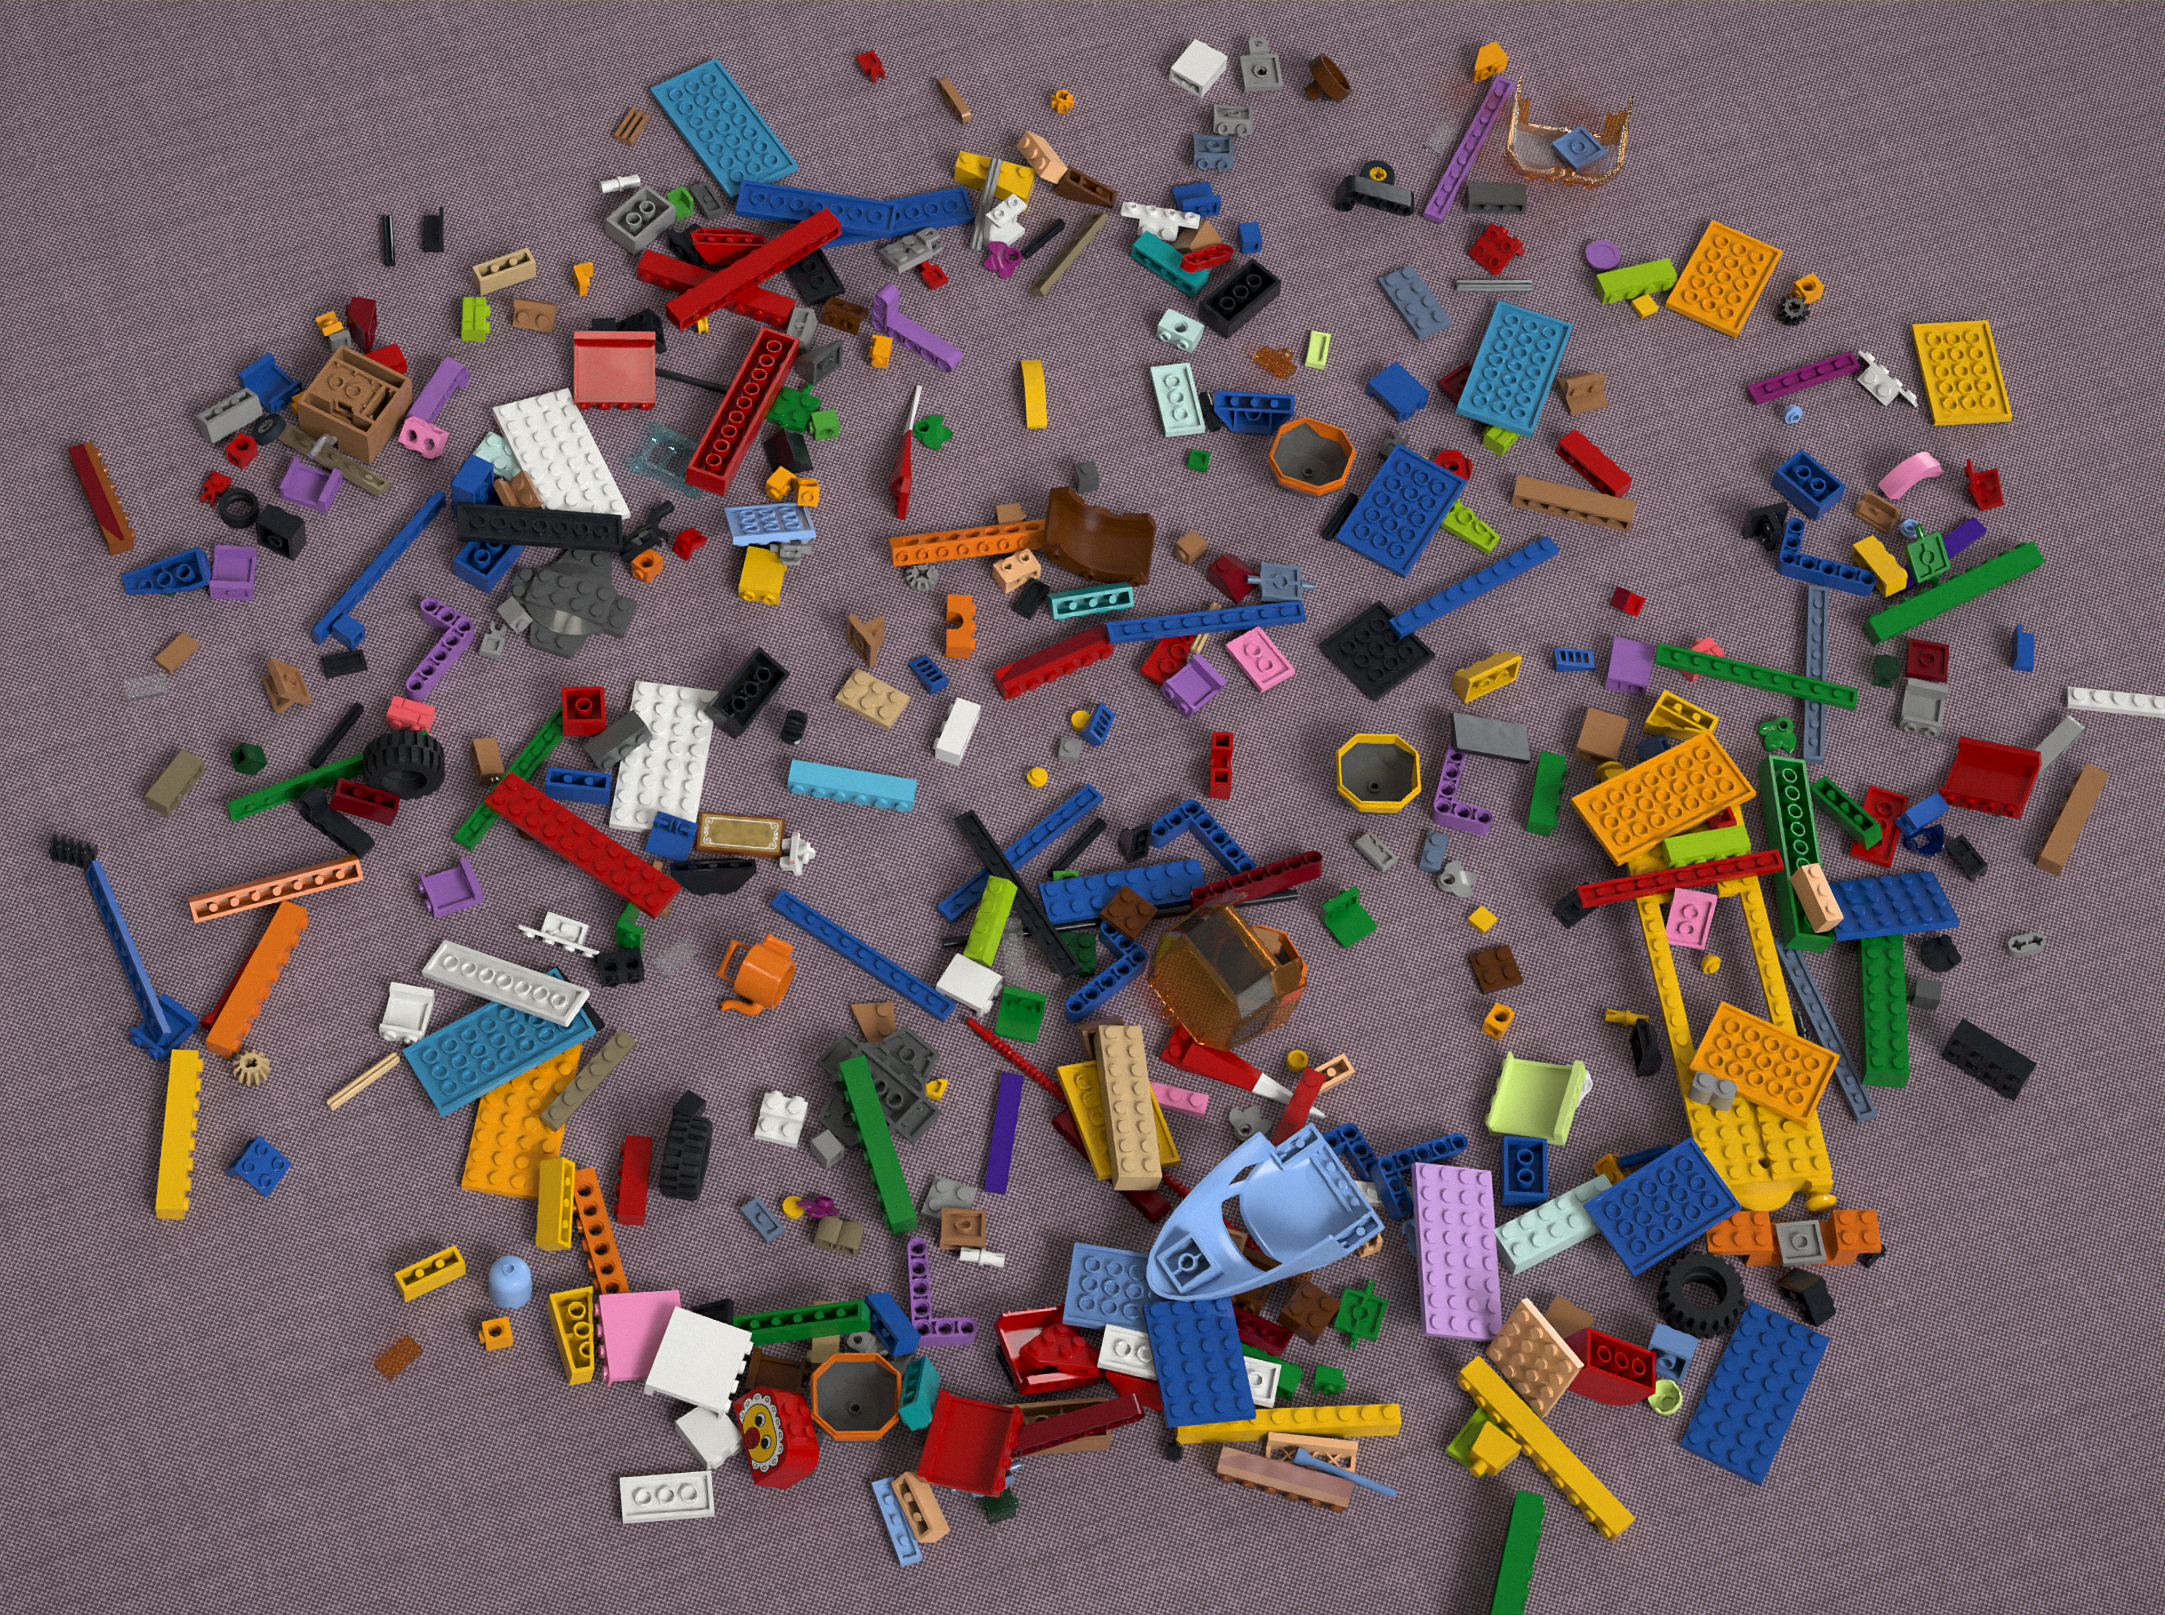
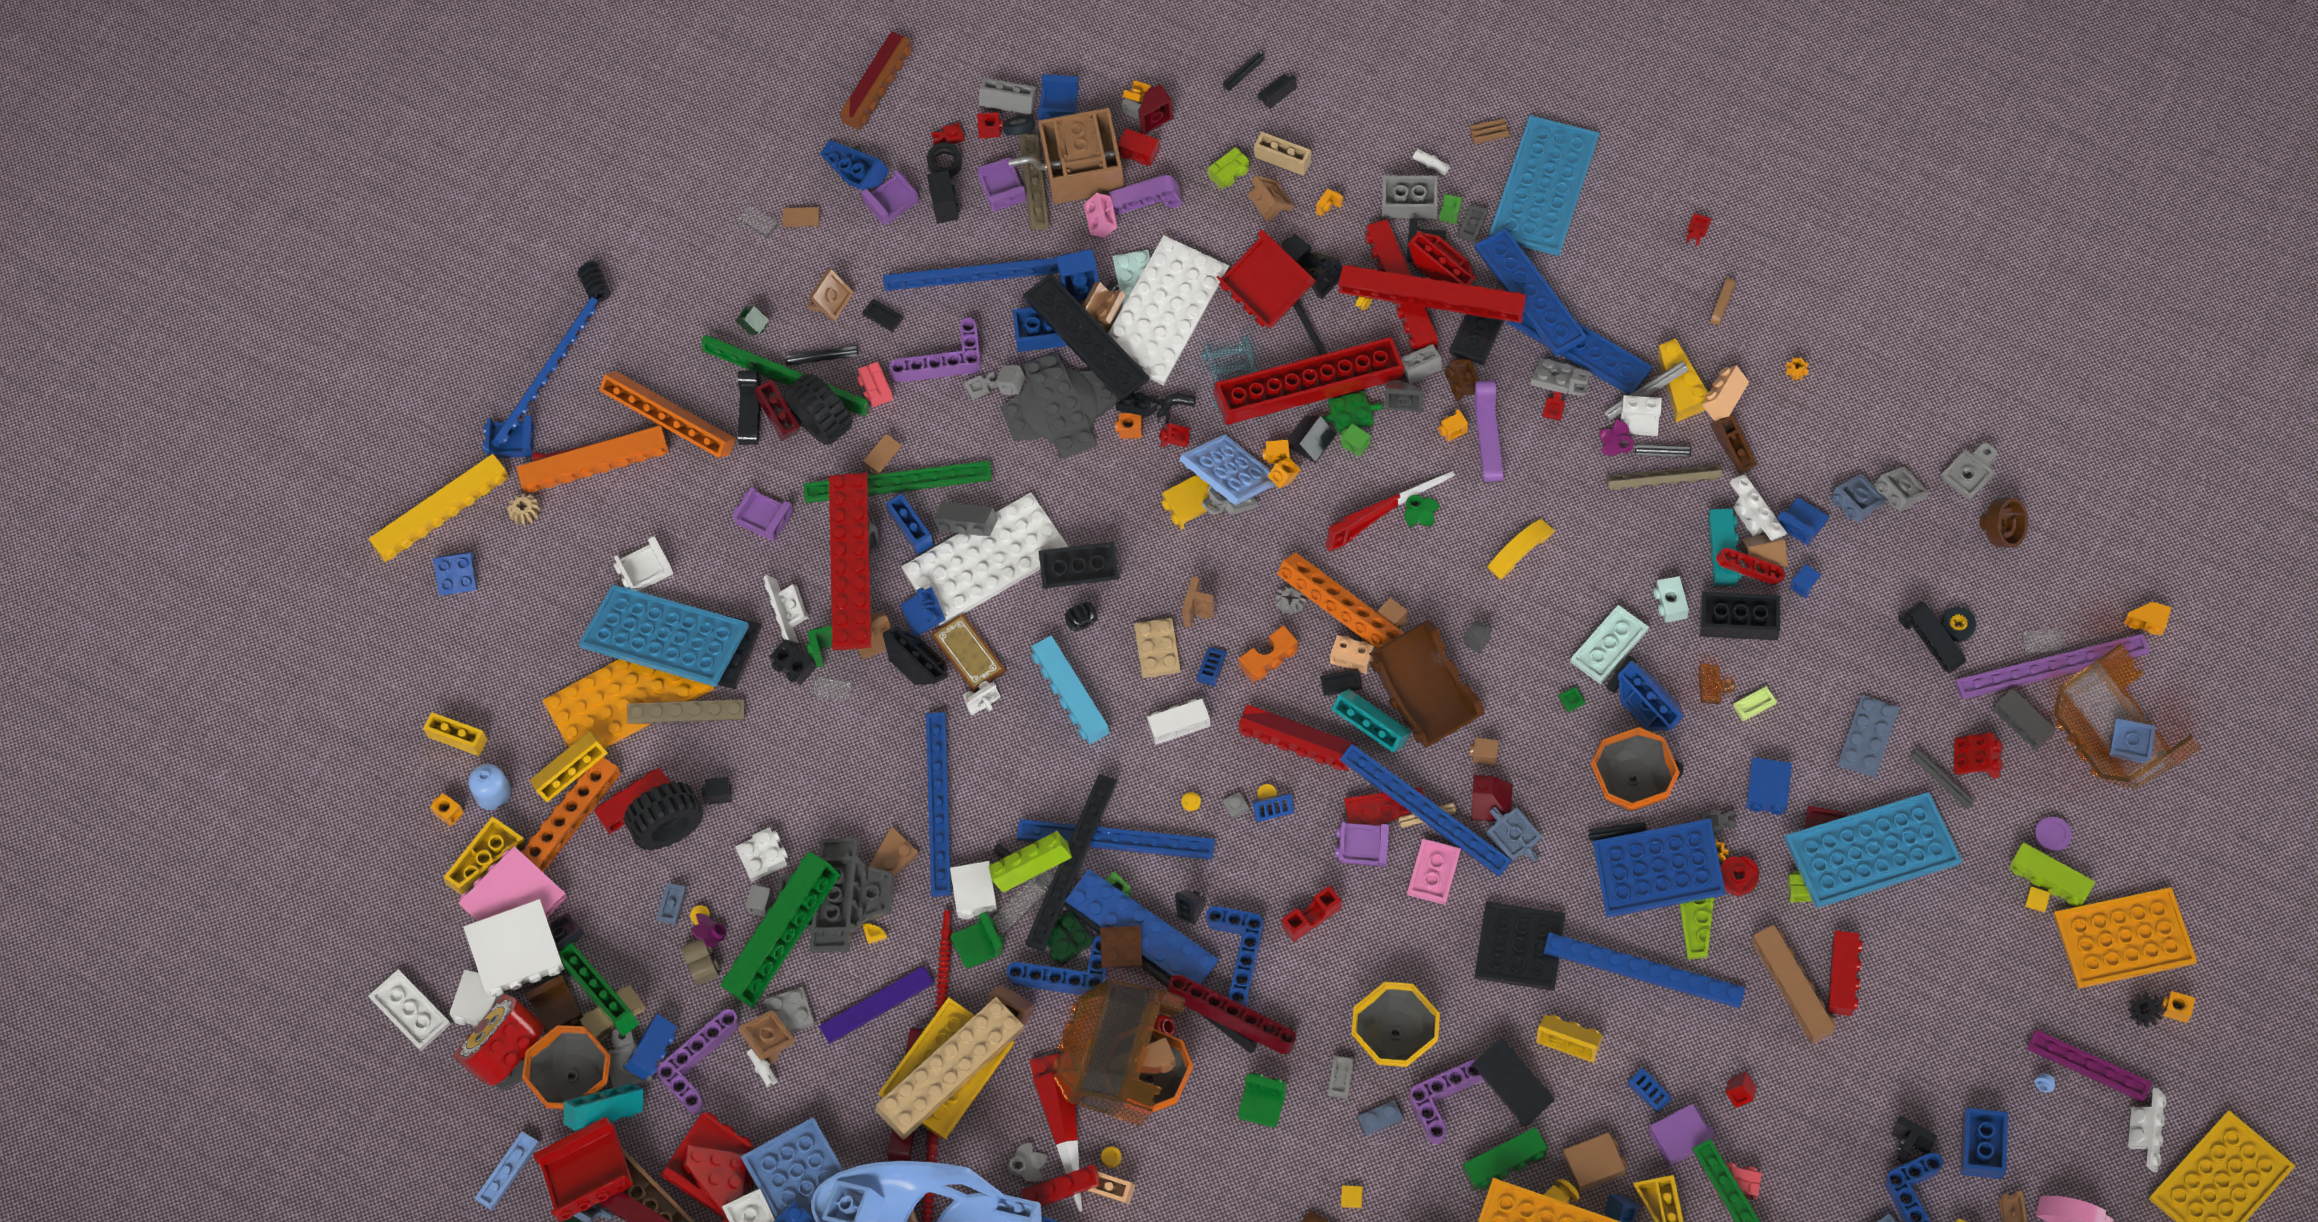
camera: 65 degrees right, 5 degrees up
(174, 783) = (698, 295): dark tan brick -> none
(348, 631) = (906, 297): blue brick -> none
(362, 1081) = (572, 581): tan axle -> none
(398, 1357) = (383, 766): clear orange tile -> none
(506, 983) = (708, 603): white plate -> none
(583, 711) = (965, 478): red brick -> none
(760, 976) = (855, 751): orange piece -> none
(920, 1508) = (523, 1181): light nougat brick -> none
(1077, 847) = (1156, 873): black axle -> none
(1180, 1099) = (1006, 1098): bright pink plate -> none
(1198, 68) = (1925, 431): white brick -> none
(1459, 880) = (1372, 1155): light grey plate -> none
(1583, 392) = (1907, 915): medium nougat bracket -> none

